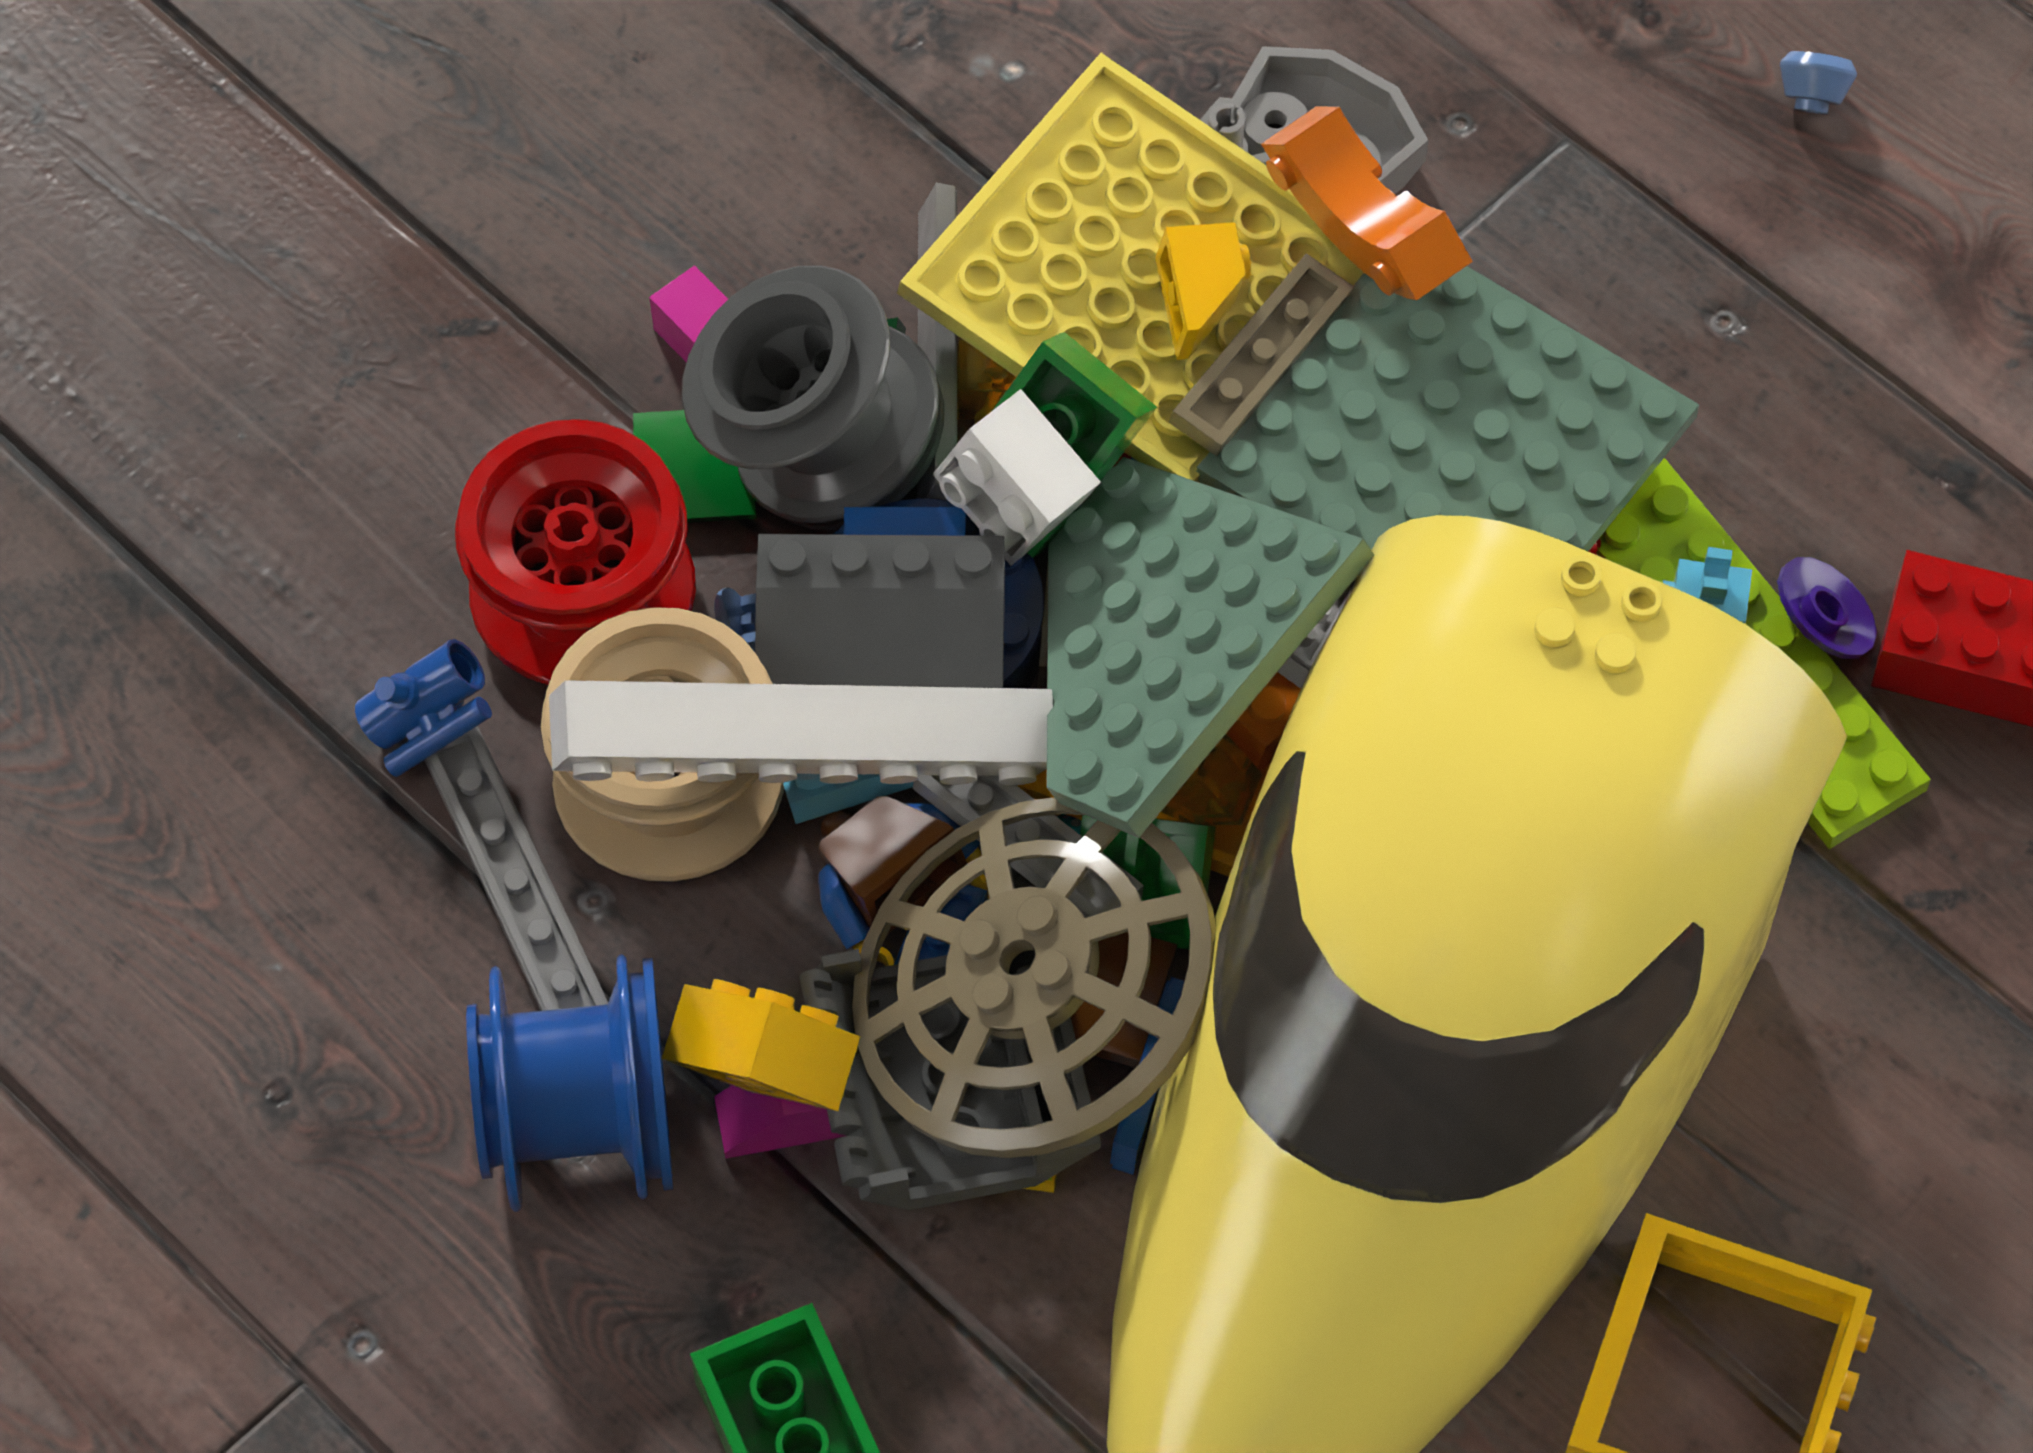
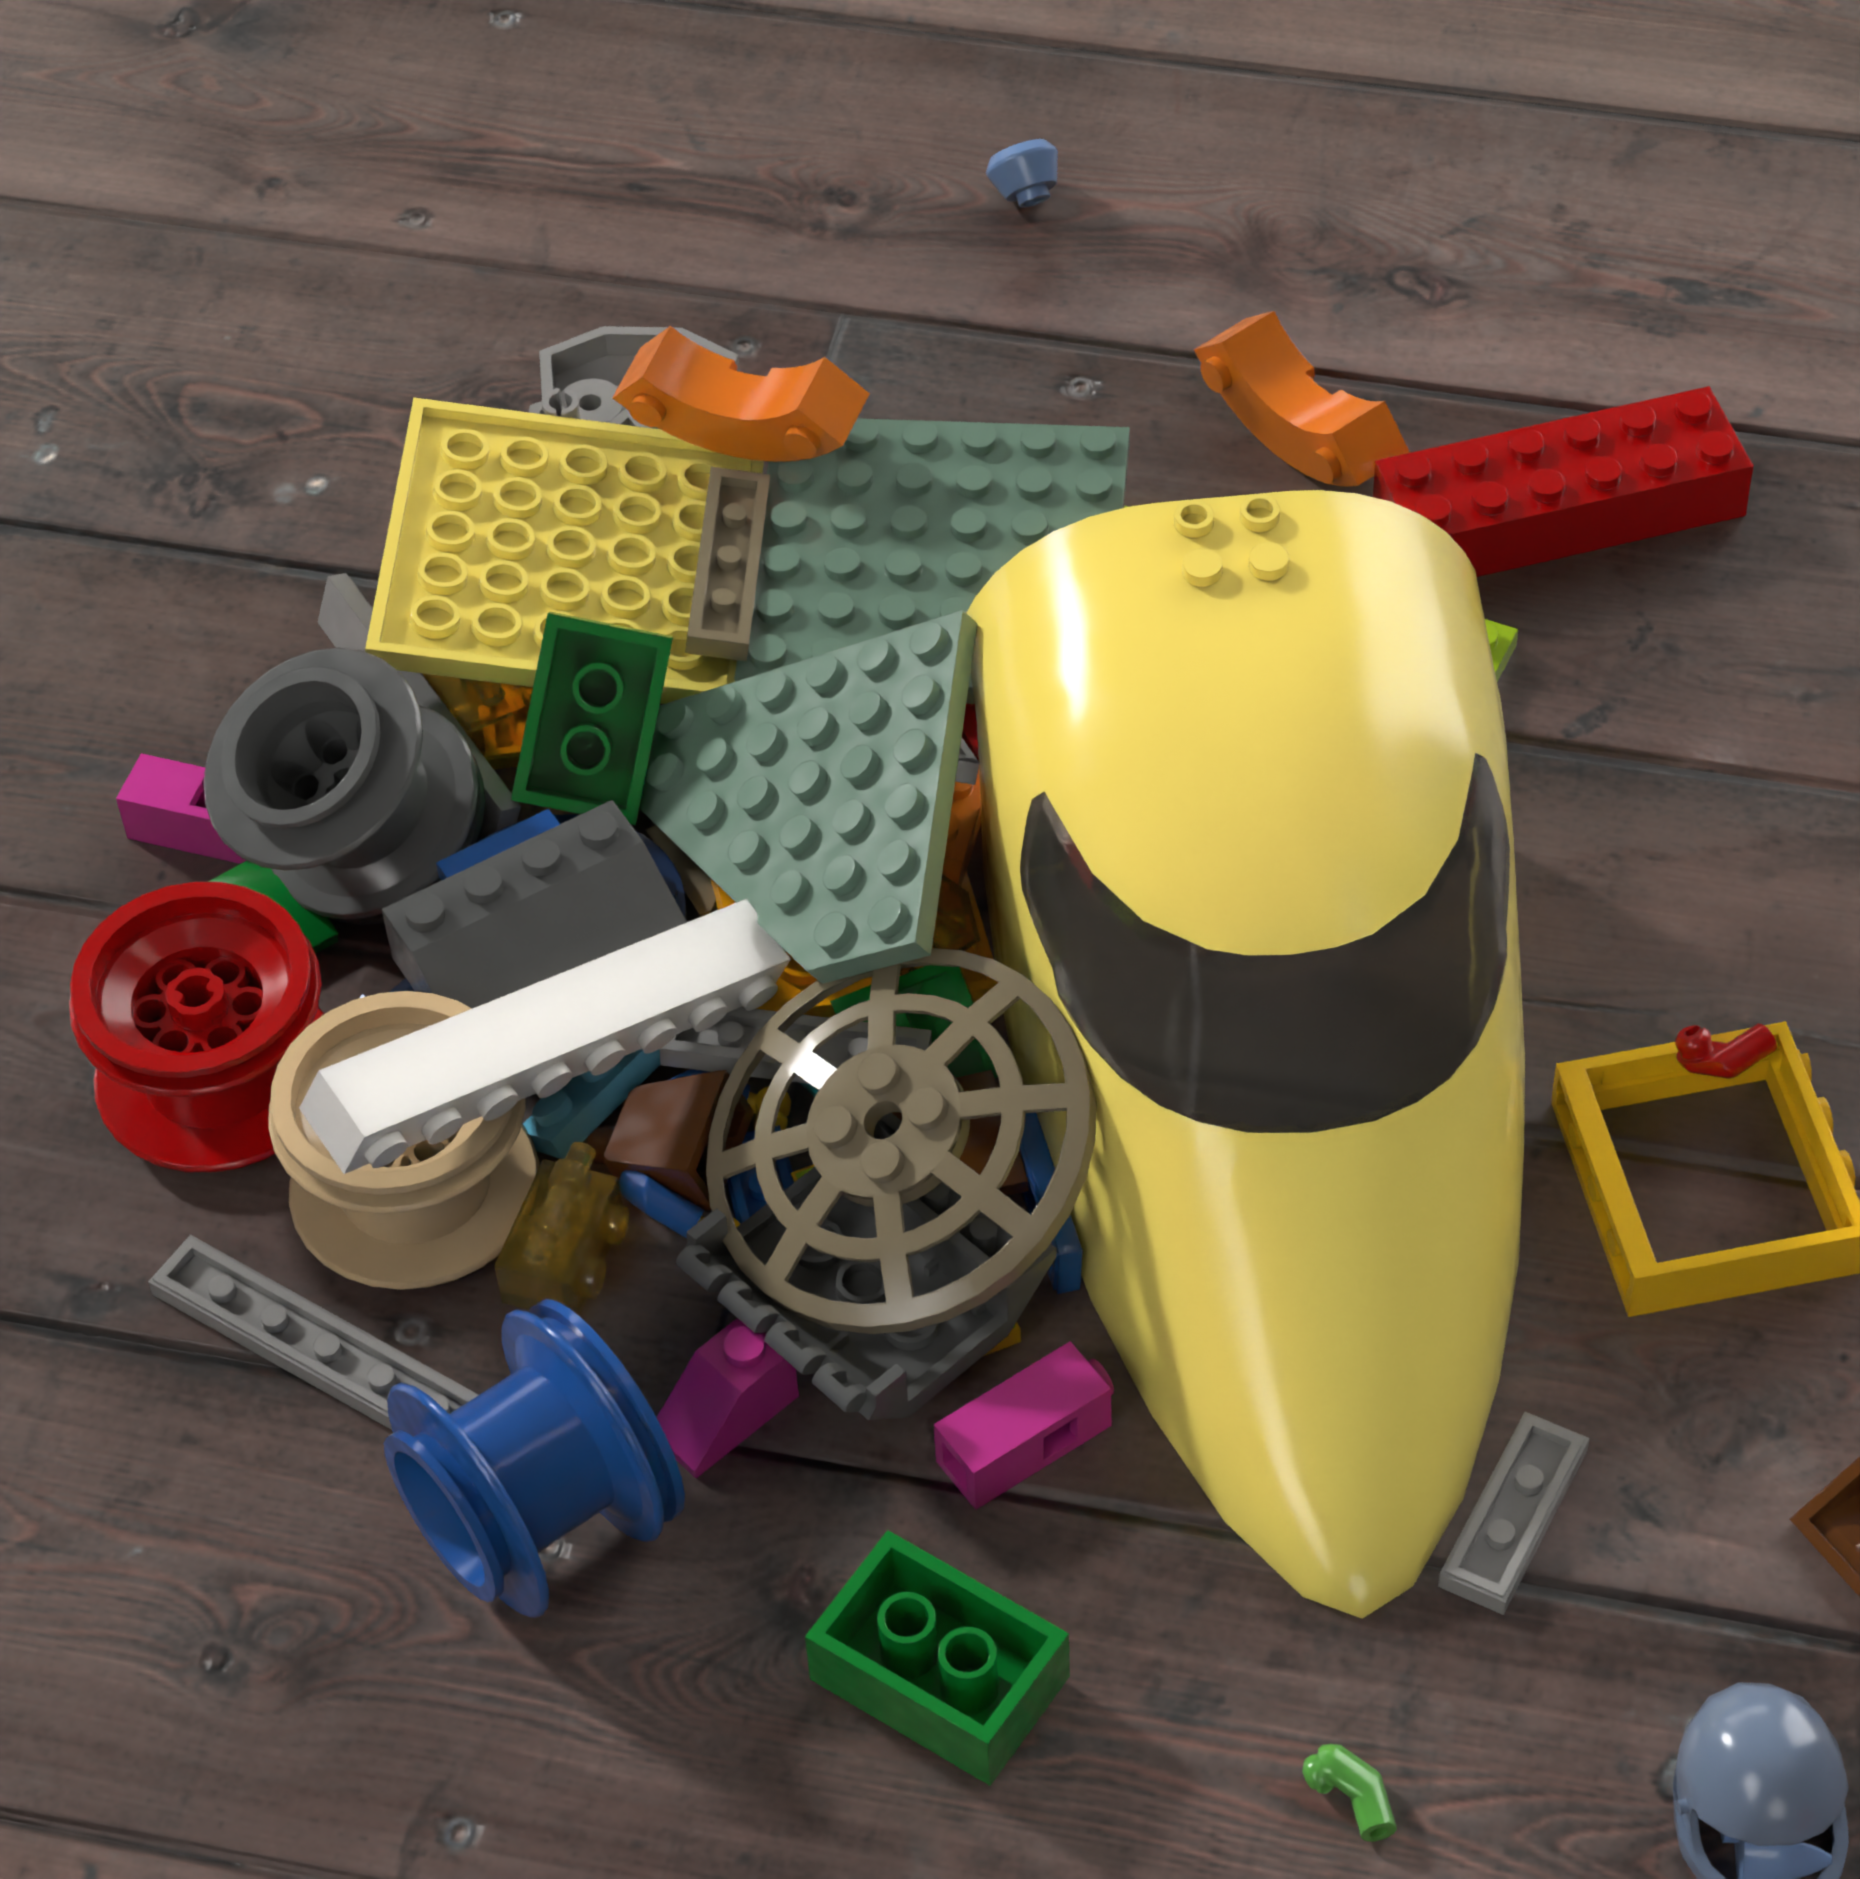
camera: 30 degrees left, 10 degrees down
(424, 706) = (138, 1238): blue pin -> none
(749, 893) = (562, 1234): none -> clear yellow brick
(762, 1043) = (696, 1321): yellow brick -> none
(999, 1269) = (1024, 1424): none -> dark pink brick
(1015, 476) = (587, 744): white slope -> none
(1200, 279) = (631, 526): yellow slope -> none
(1785, 1292) = (1719, 1059): none -> red arm
(1890, 482) = (1287, 411): none -> orange brick

